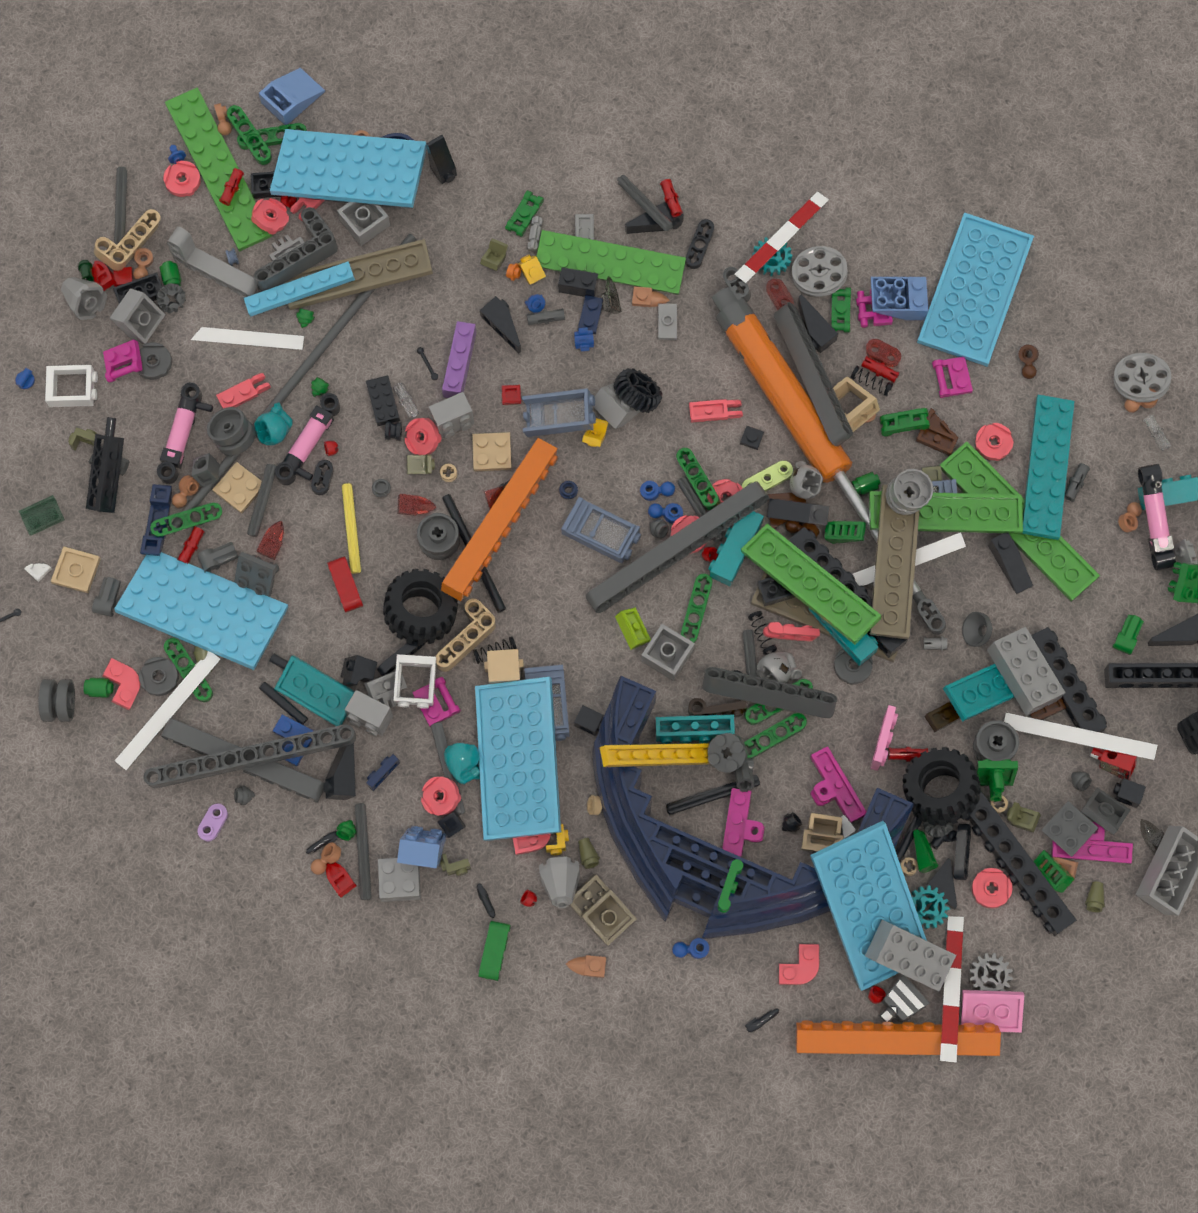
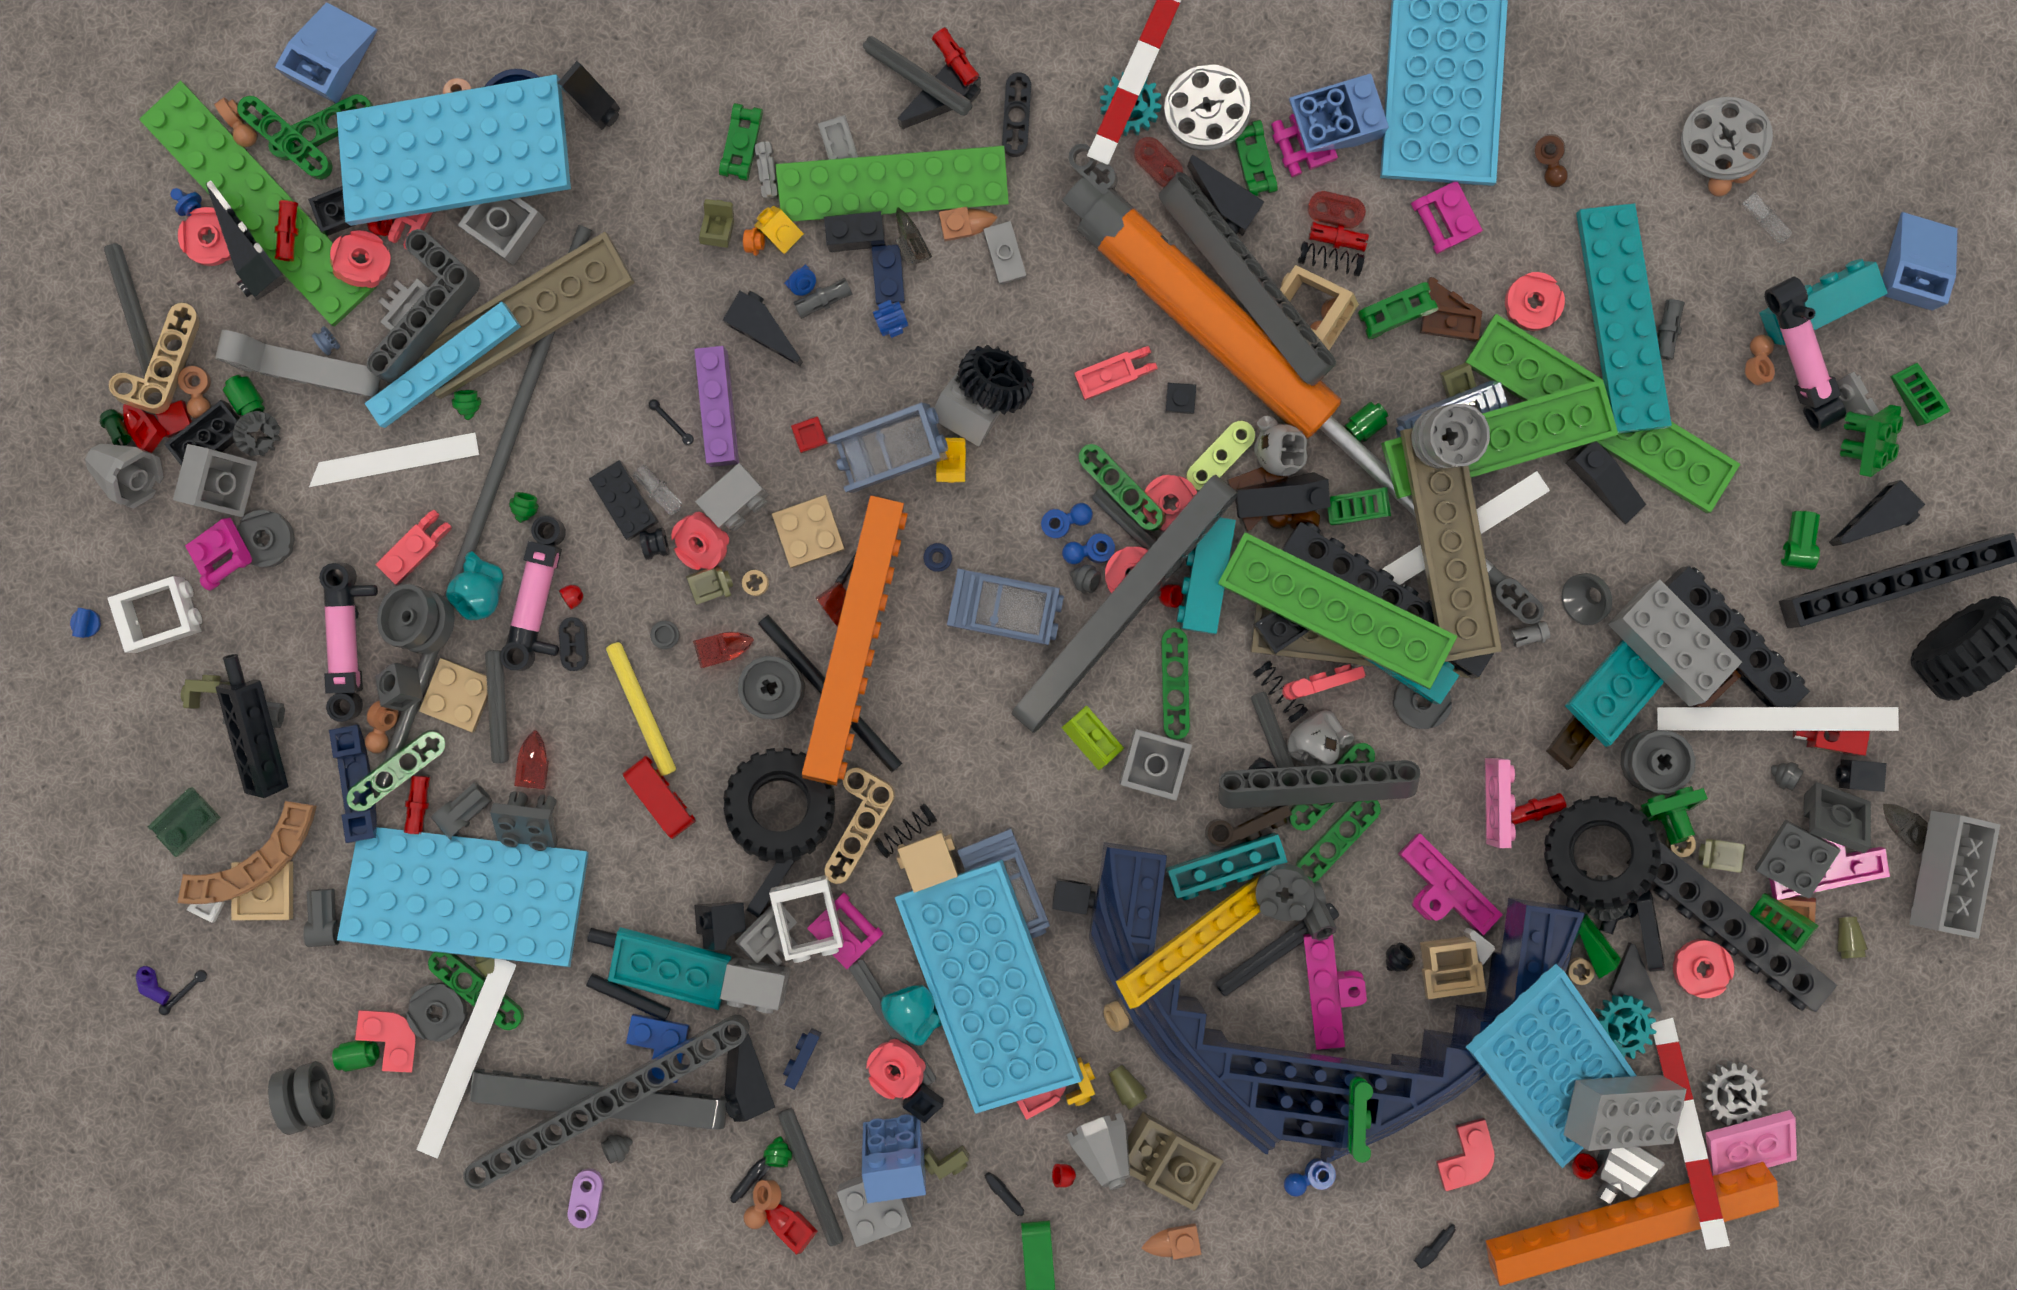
camera: 15 degrees left, 15 degrees up
(79, 553) = (256, 869): none -> medium nougat tile
(205, 200) = (249, 259): none -> black wedge

